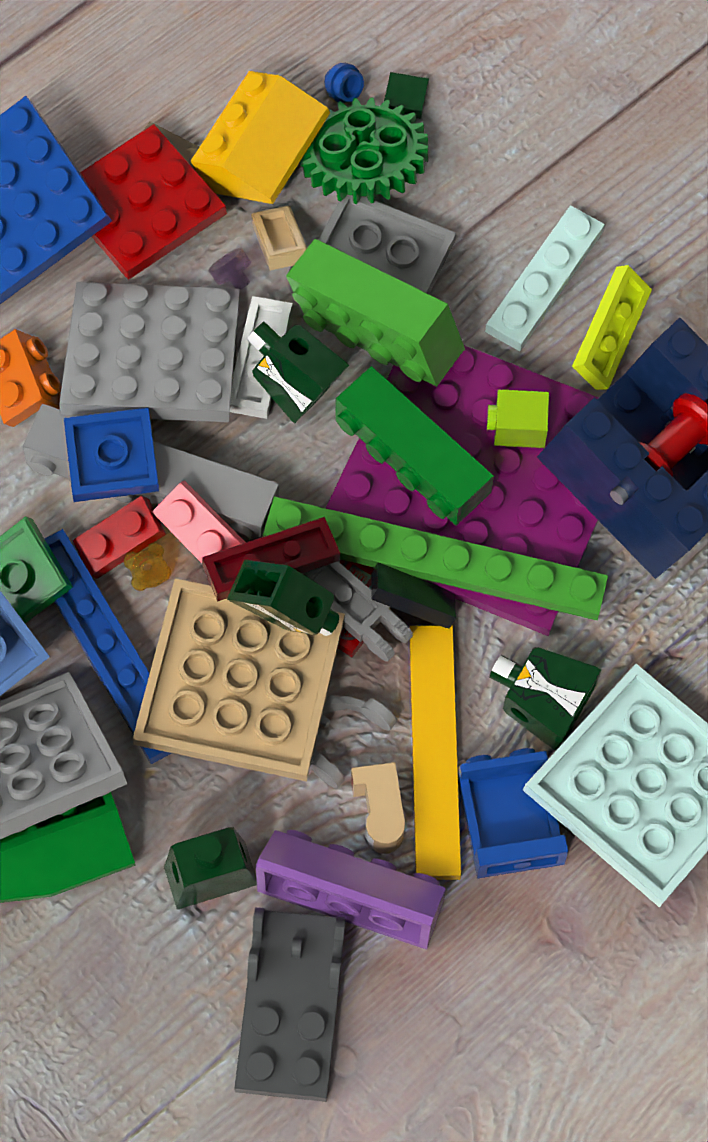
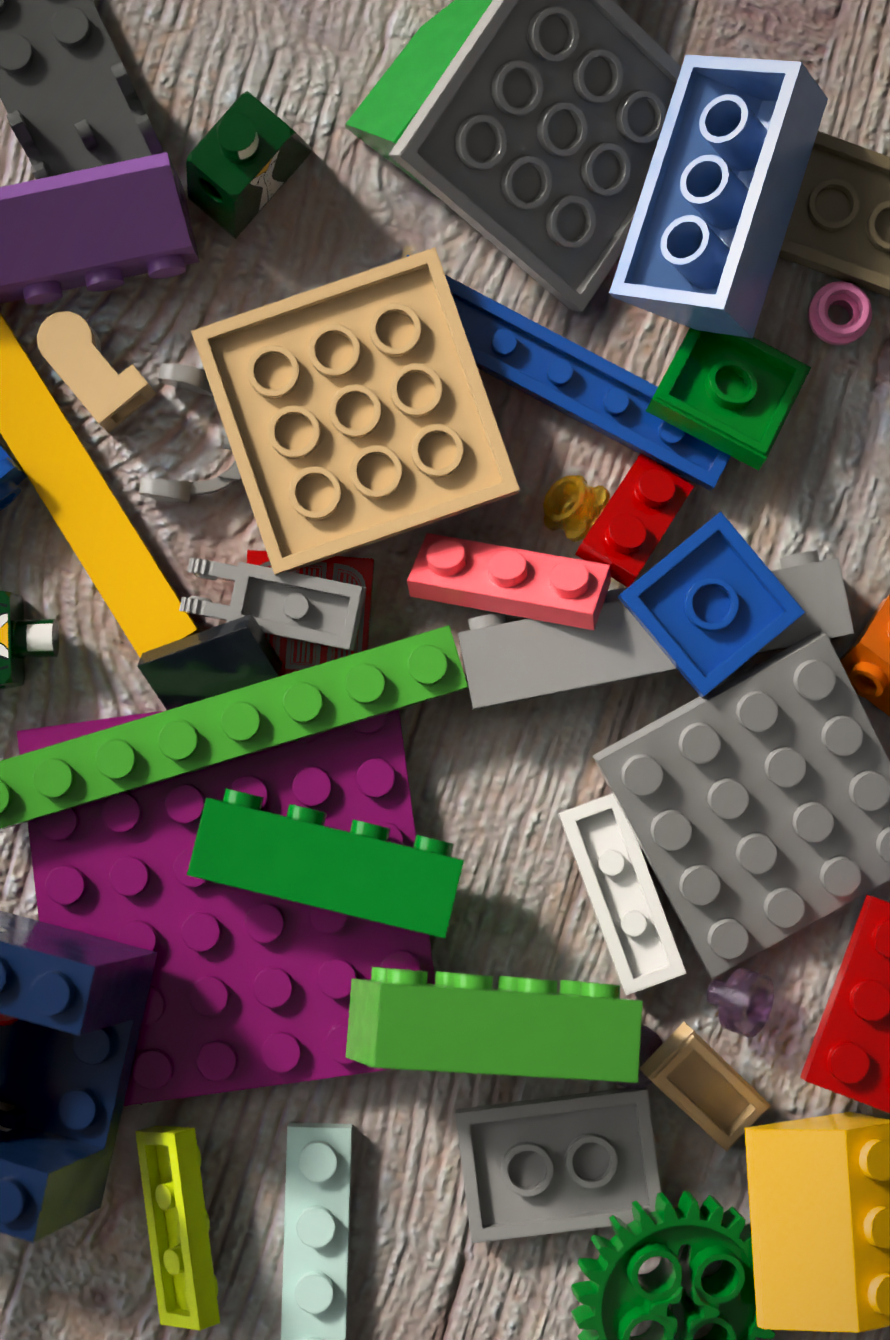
camera: 155 degrees right, 20 degrees up
(284, 598) = (346, 513): dark green torso -> none
(294, 368) = (551, 884): dark green torso -> none
(300, 547) = (408, 581): dark red plate -> none
(519, 418) = (208, 992): lime brick -> none

